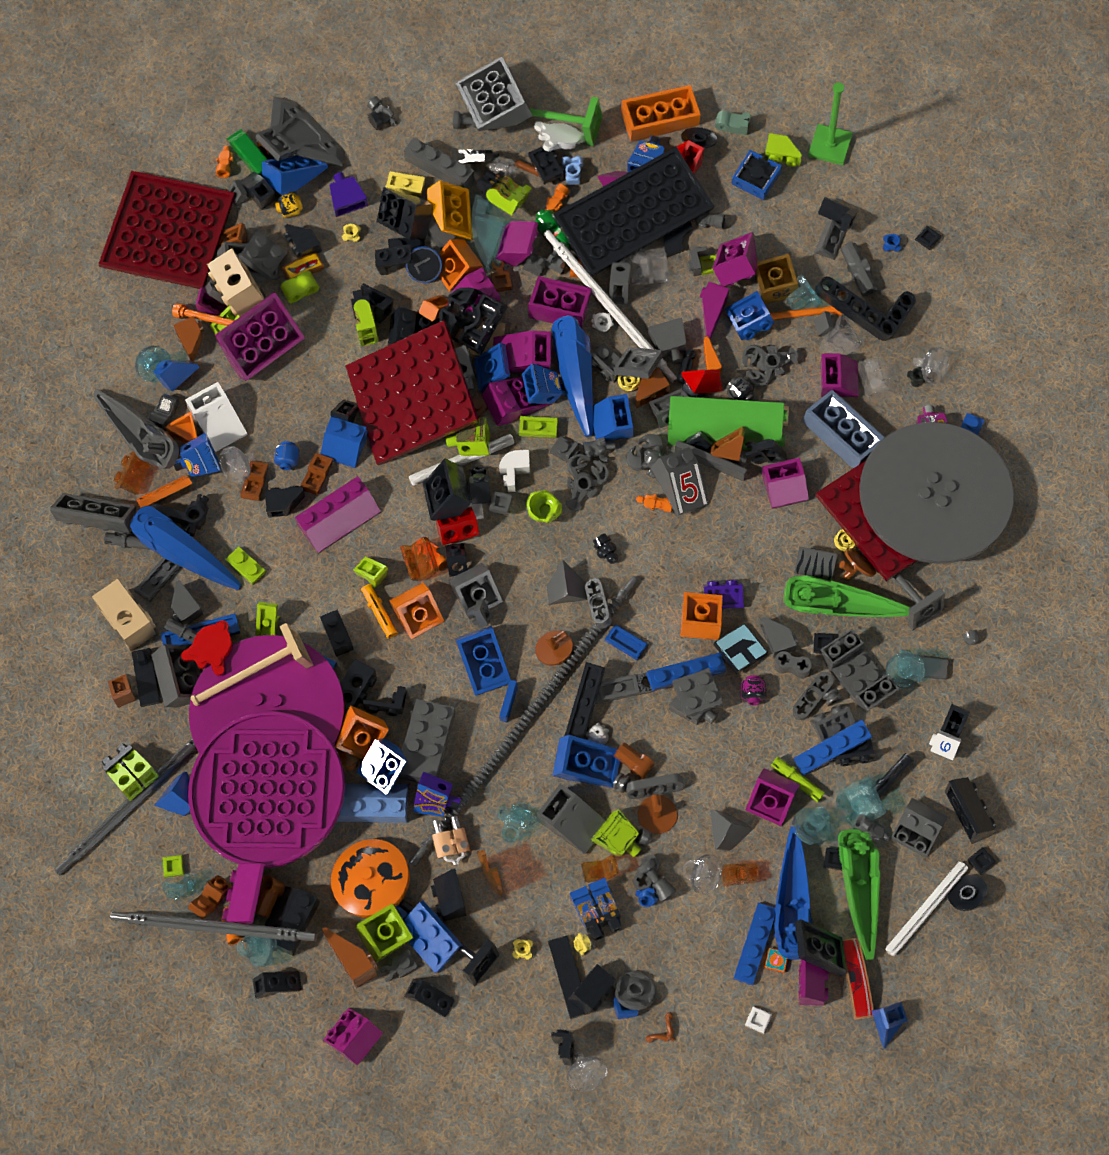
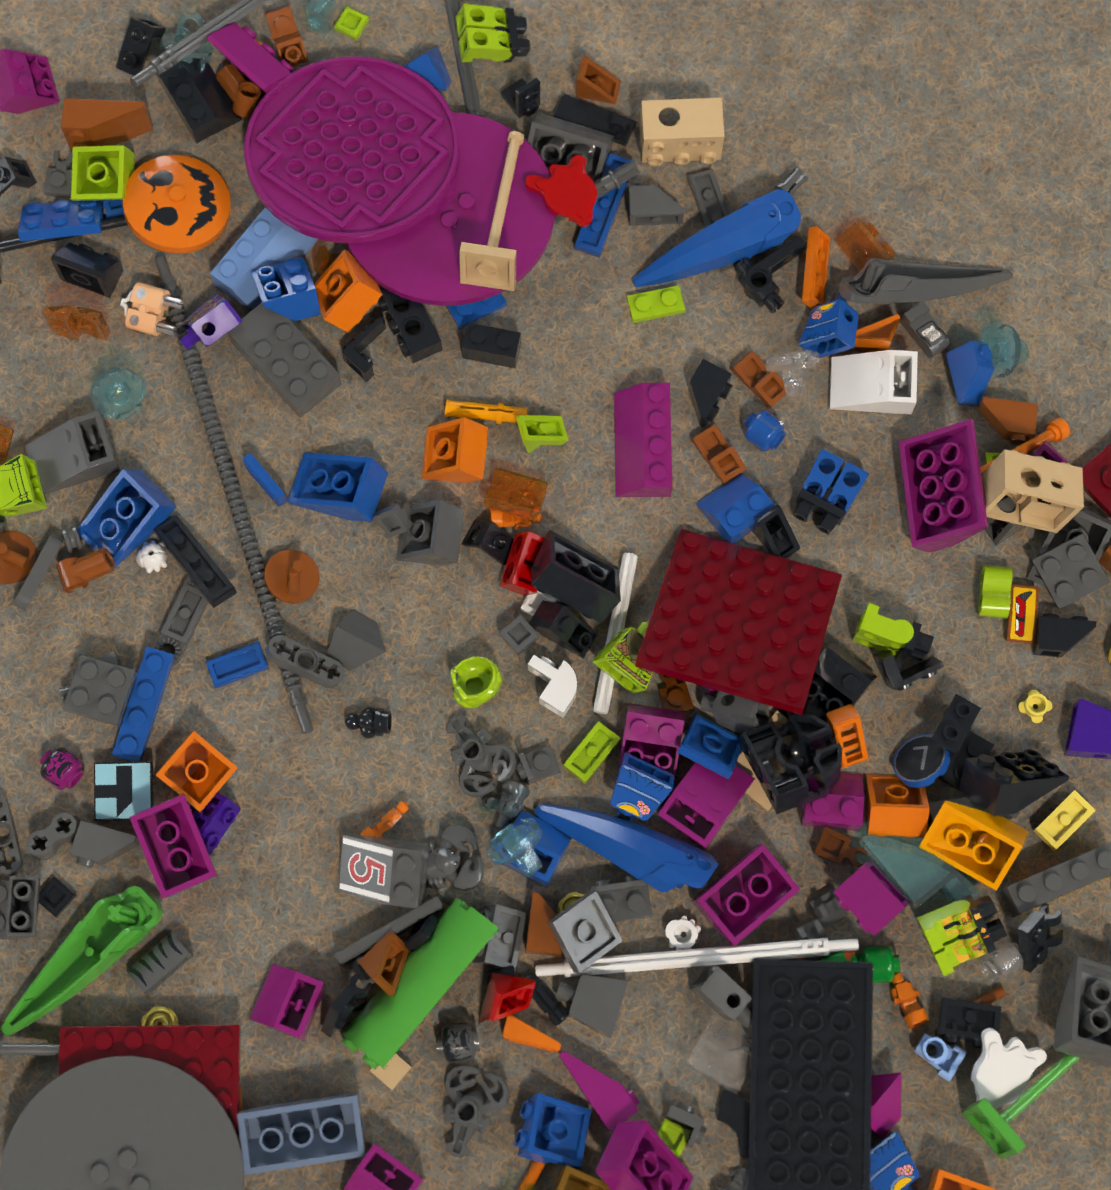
camera: 120 degrees right, 5 degrees up
(93, 513) = (838, 170): dark grey slope -> none
(160, 724) = (523, 97): none -> black bracket
(267, 619) = (563, 281): lime slope -> none
(299, 402) = (824, 499): none -> blue hips
(620, 414) = (516, 845): none -> clear light blue tile
(751, 593) = (173, 846): none -> magenta slope
(858, 562) = (113, 1009): dark orange shield -> none

